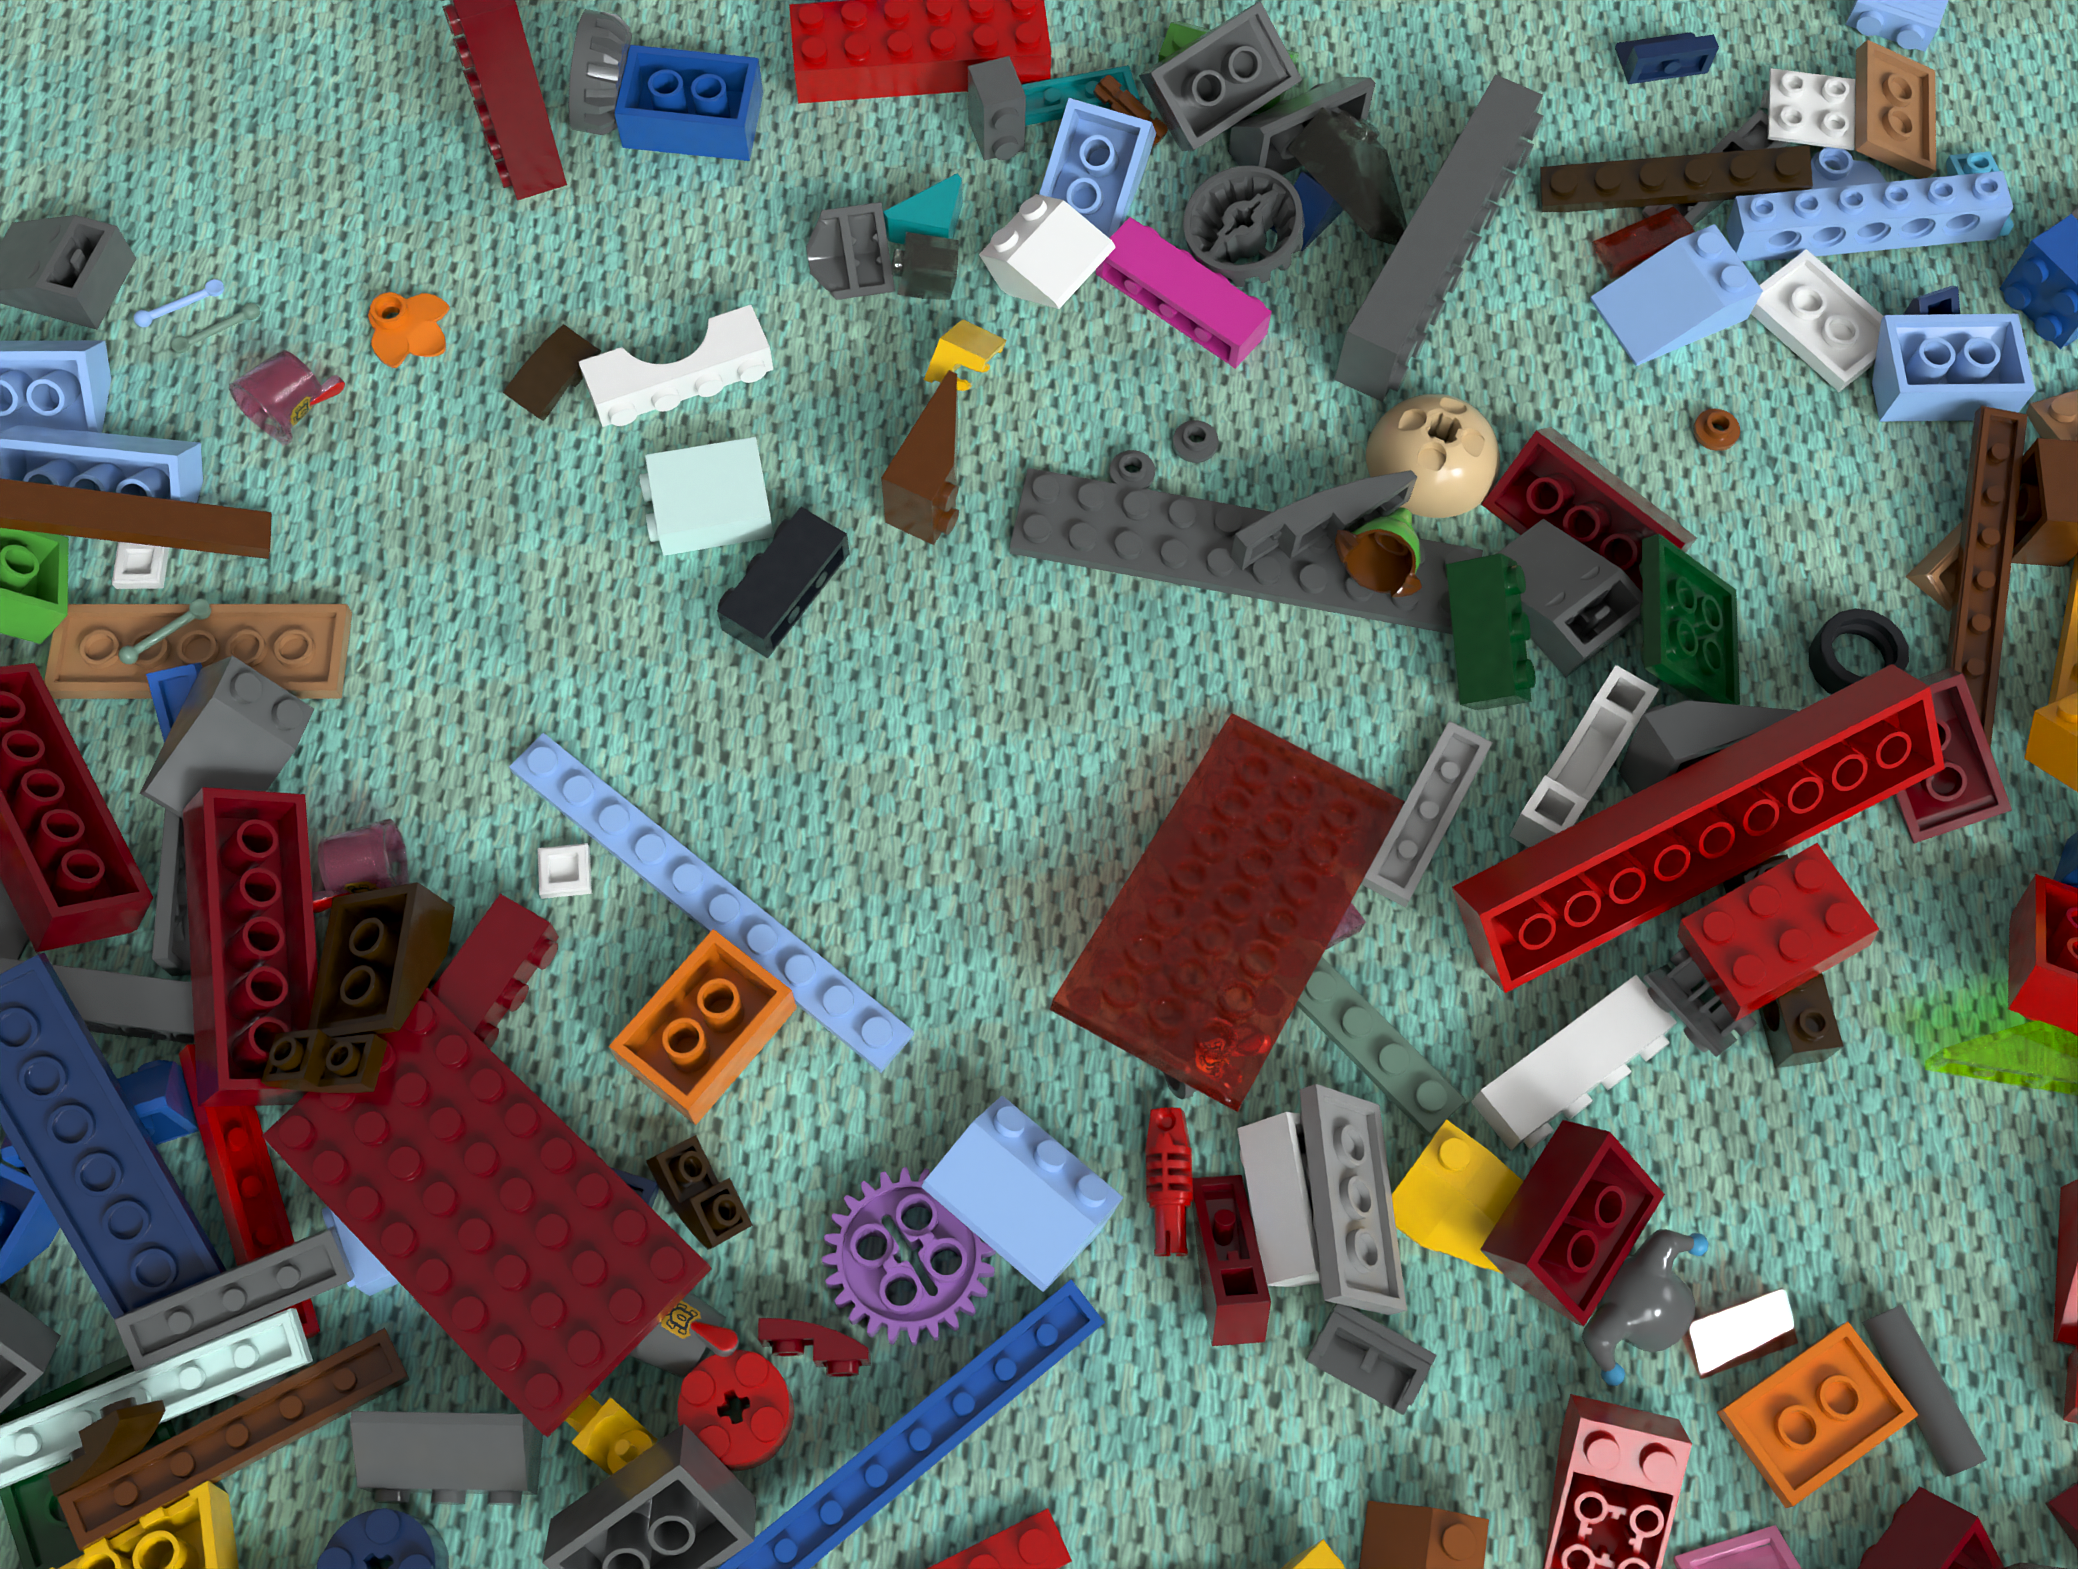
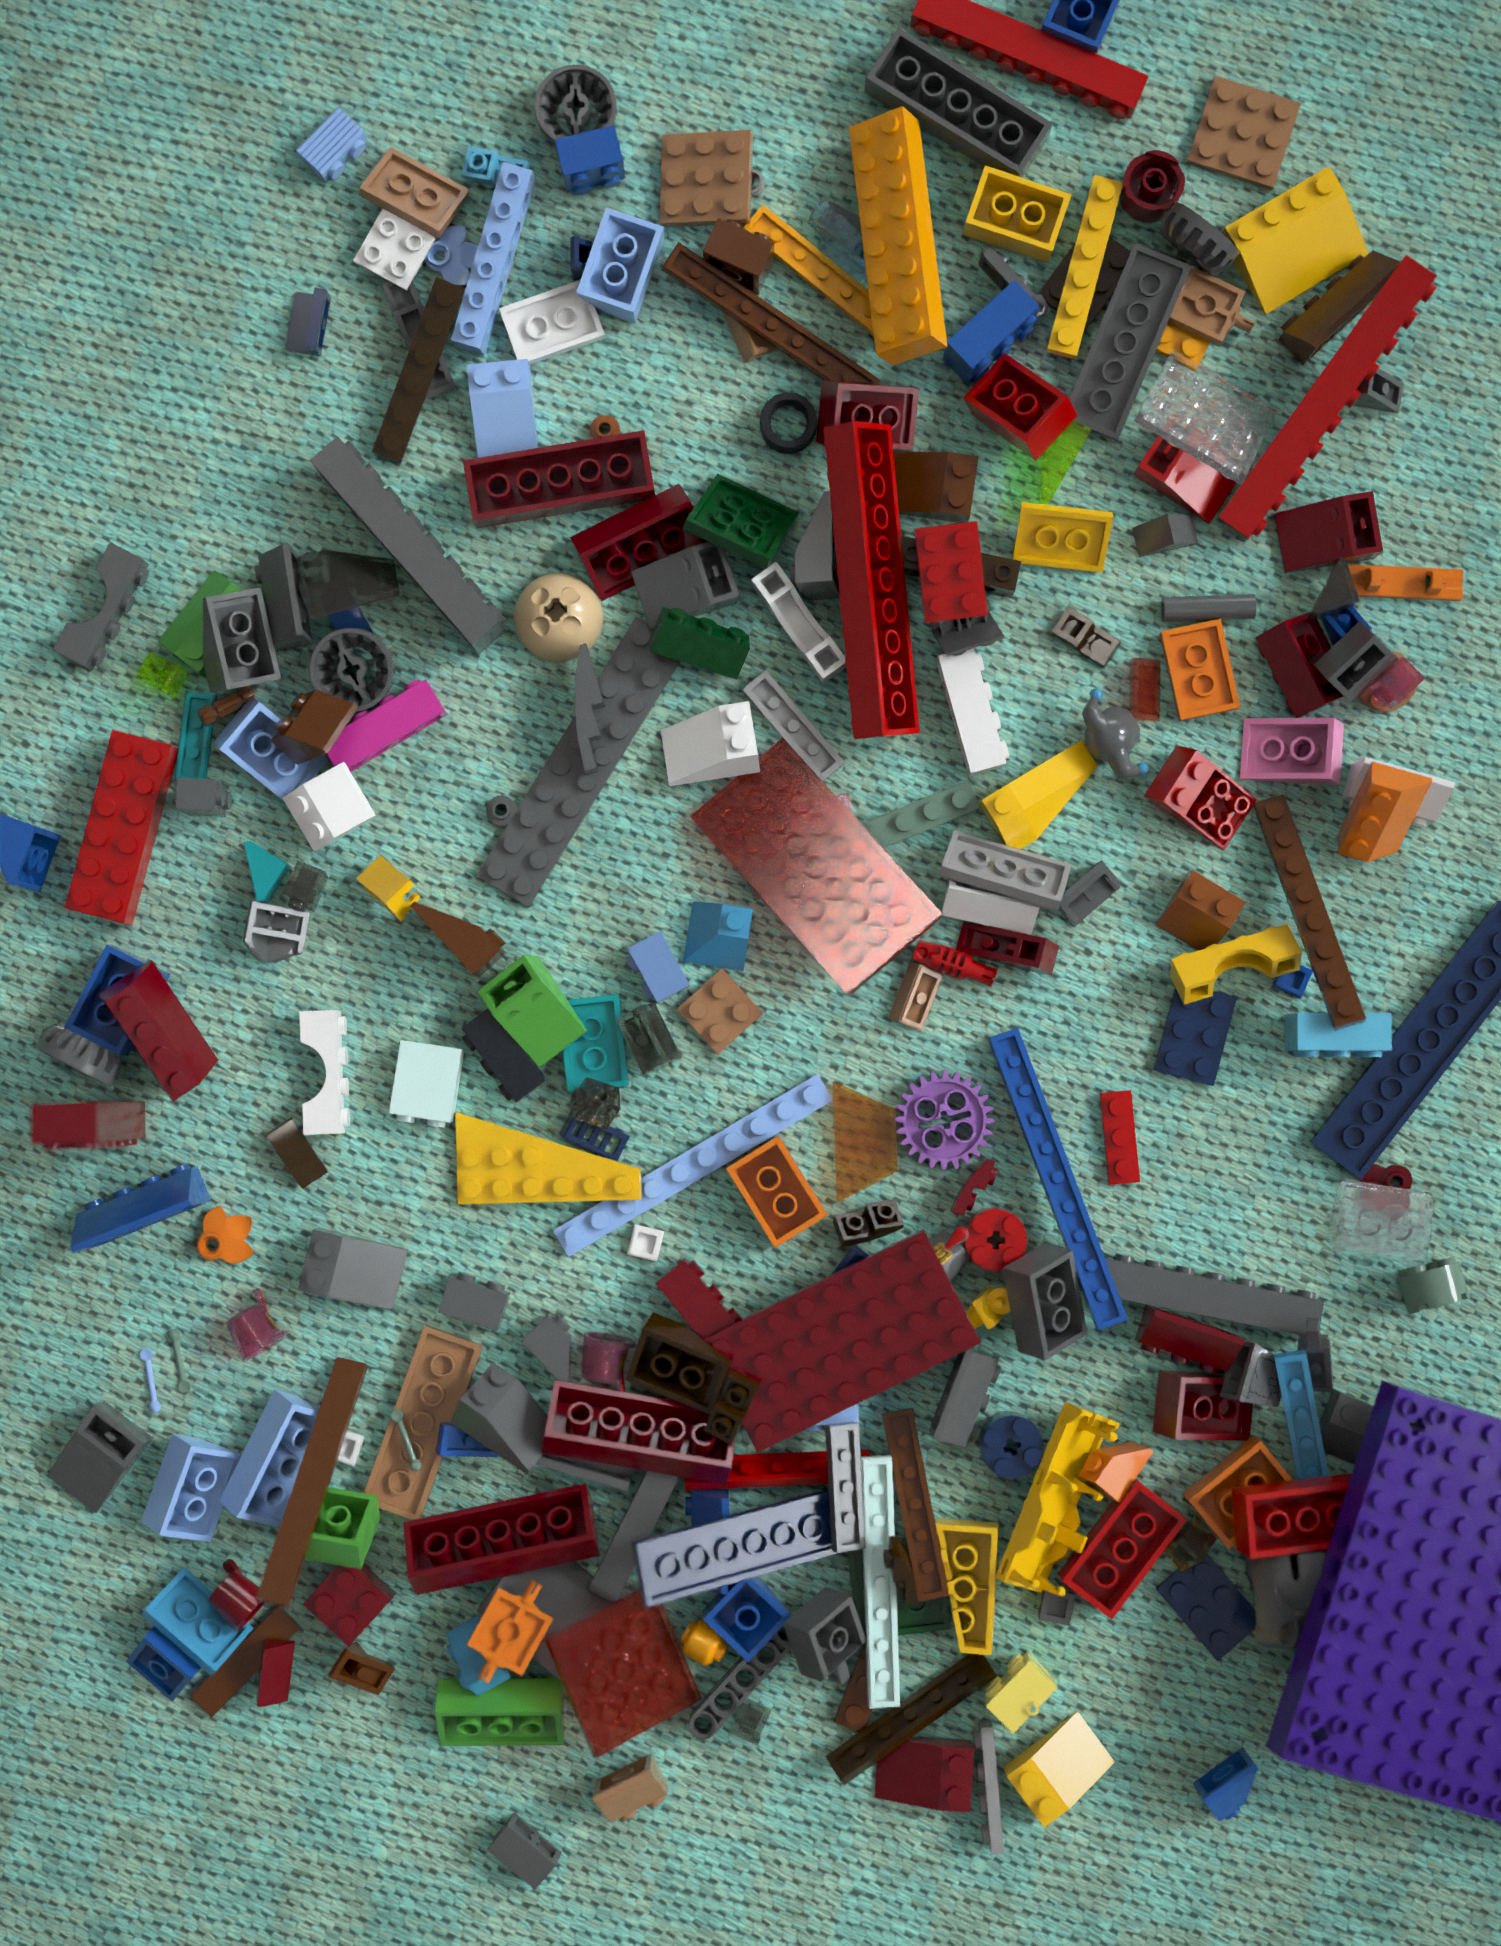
camera: 65 degrees left, 20 degrees up
(361, 787) = (552, 1345): none -> dark grey slope
(402, 660) = (474, 1301): none -> dark grey brick
(405, 486) = (352, 1269): none -> slope
(409, 204) = (138, 1208): none -> blue slope
(625, 667) = (518, 1167): none -> yellow wing
(664, 145) = (160, 1030): none -> dark red slope
(712, 705) = (569, 1125): none -> dark blue slope
(754, 718) = (595, 1102): none -> clear smoke brick
(828, 1138) = (862, 1141): none -> clear orange wing
(843, 696) = (601, 1049): none -> teal plate
(864, 586) = (532, 1009): none -> bright green slope
(877, 761) = (648, 1038): none -> clear smoke brick
(957, 857) = (719, 1011): none -> medium nougat plate
(989, 743) = (657, 967): none -> medium blue brick
(1022, 1193) = (936, 1047): light blue slope -> none
(1073, 817) = (718, 935): none -> dark azure slope
(1101, 1139) = (915, 996): none -> medium nougat slope
(1136, 39) = (162, 675): none -> clear neon green slope
(1146, 192) = (312, 725): none -> reddish brown slope
(1193, 451) = (498, 771): dark grey plate -> none
(1351, 708) = (711, 745): none -> white slope
(1383, 554) = (624, 682): reddish brown hat -> none
(1573, 1220) = (1061, 756): dark red slope -> none
(1623, 388) = (559, 479): none -> dark red brick
(1638, 242) = (452, 410): clear red slope -> none
(1773, 1206) = (1086, 637): none -> slope
(1892, 881) = (935, 484): none -> reddish brown slope
(1912, 1103) = (1062, 537): none -> yellow plate
(2002, 1273) = (1165, 534): none -> dark grey slope

